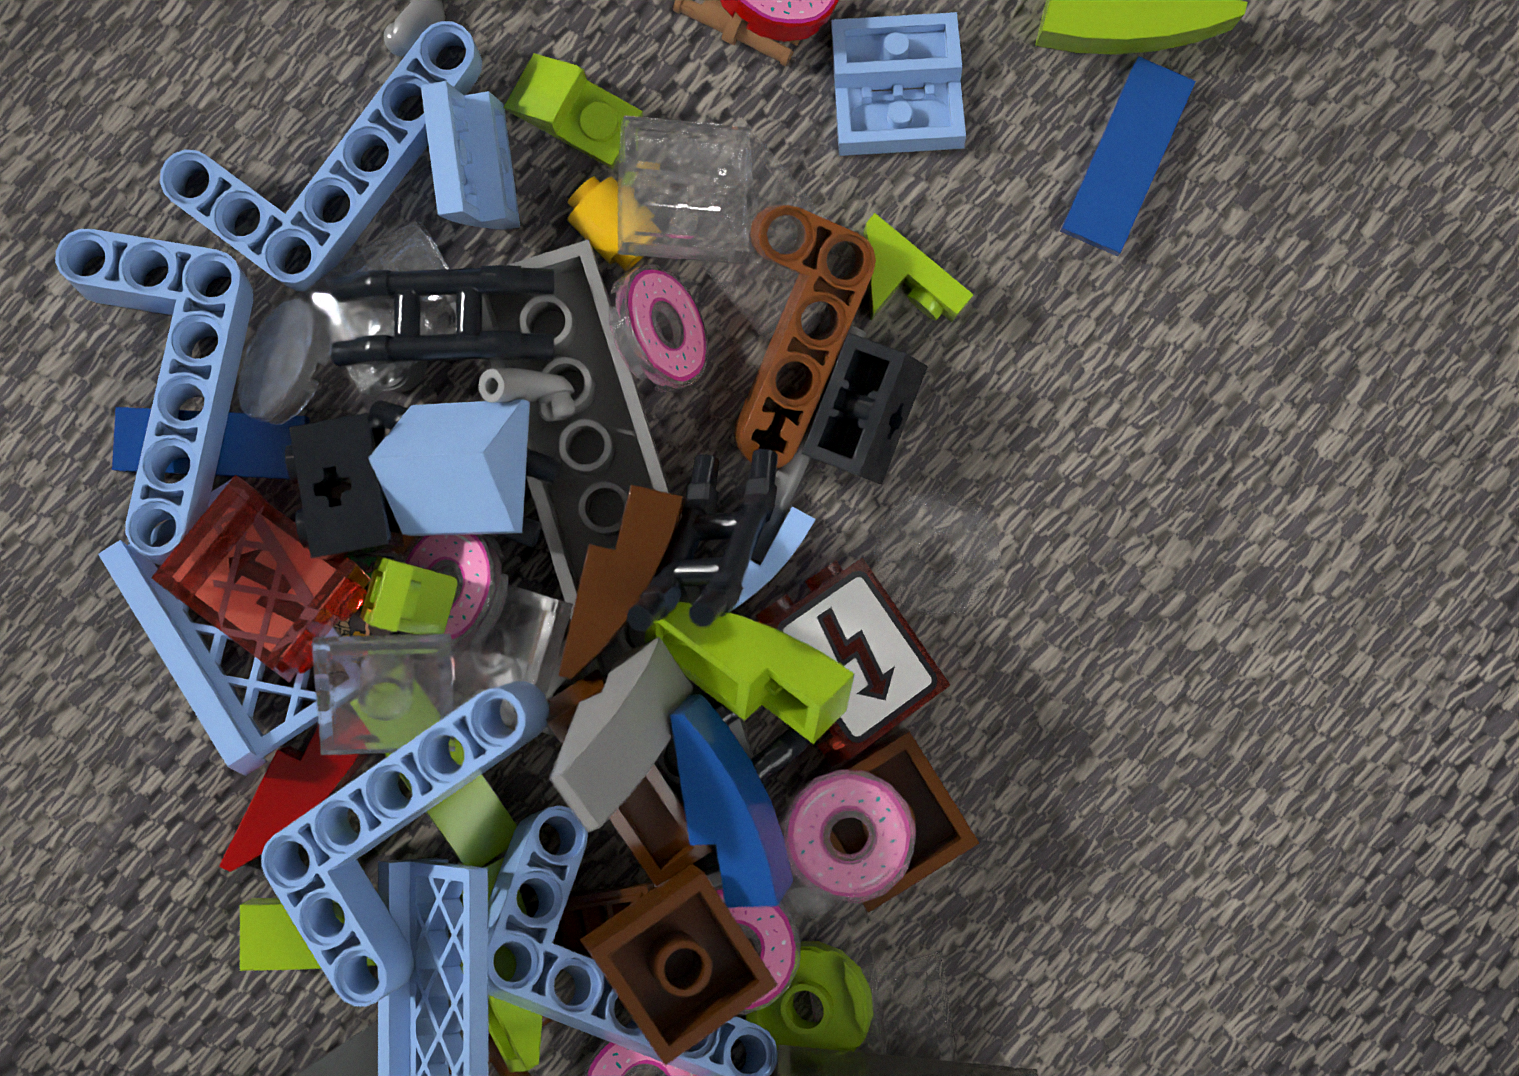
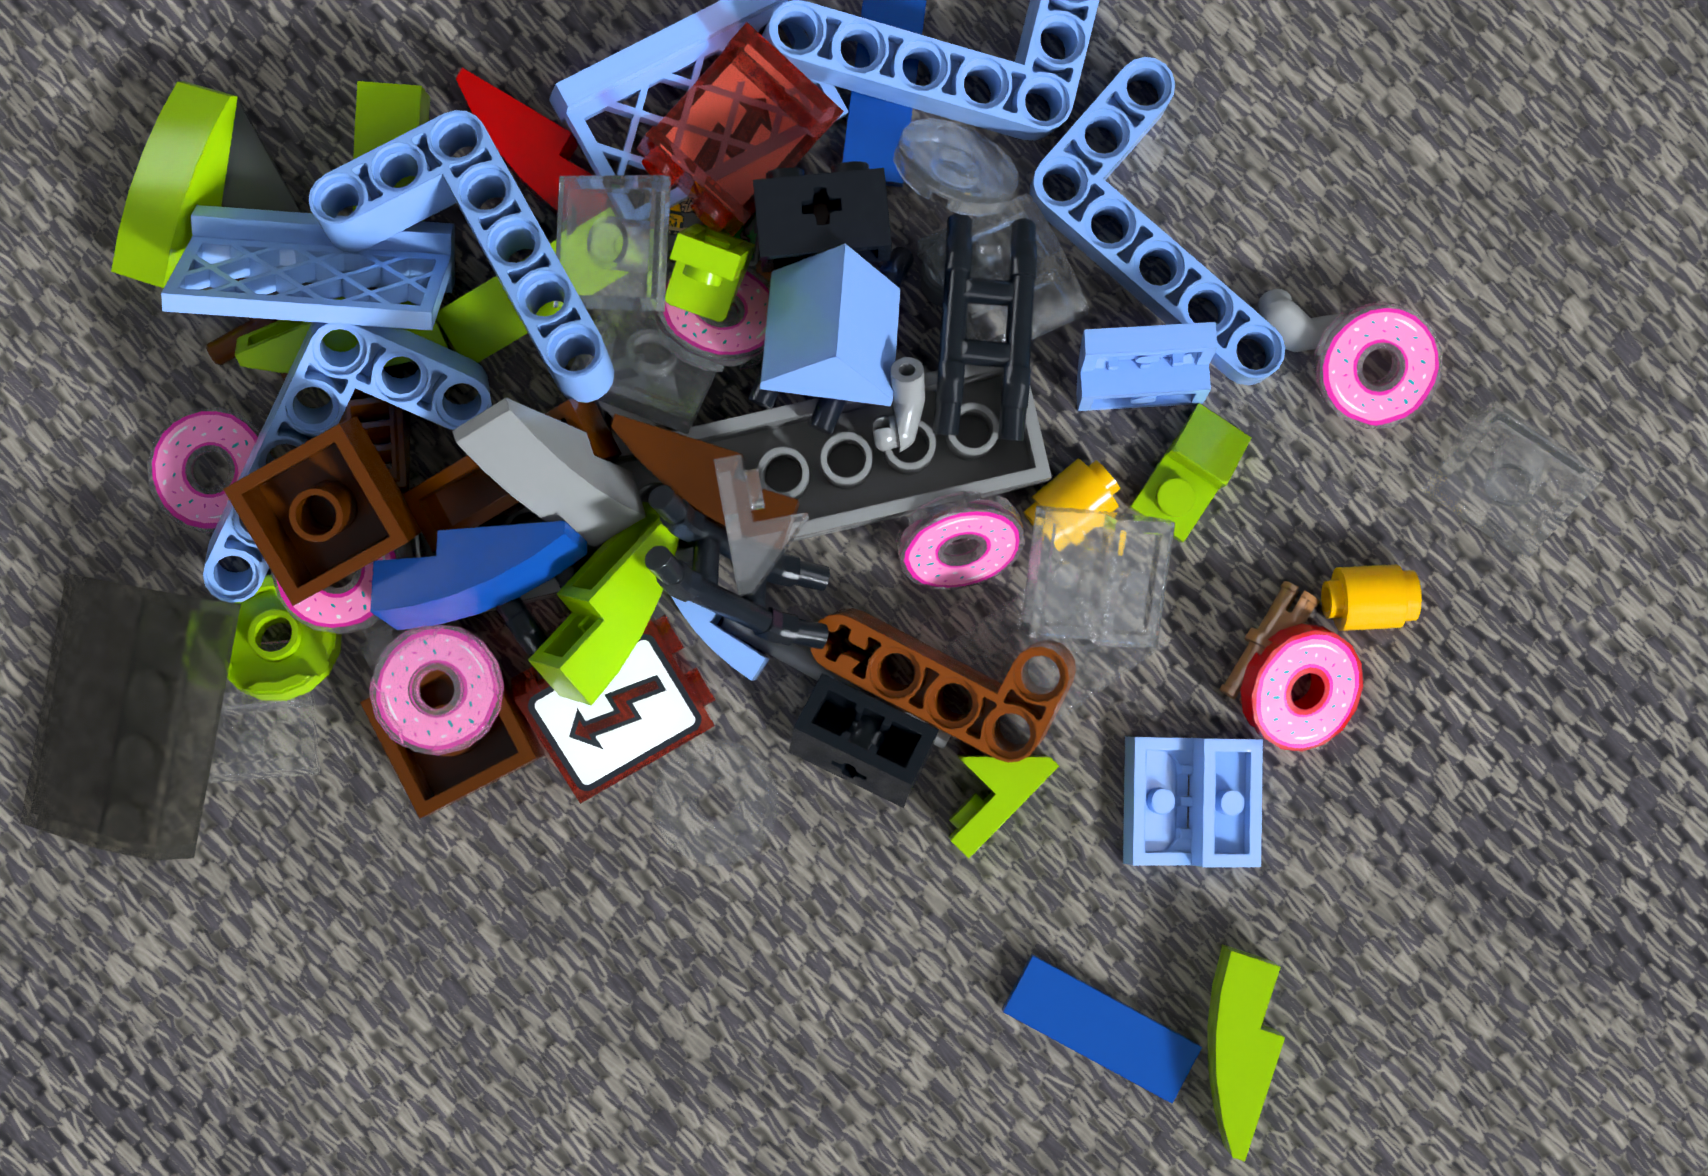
camera: 90 degrees right, 0 degrees up
(679, 523) = (752, 544): none -> clear slope

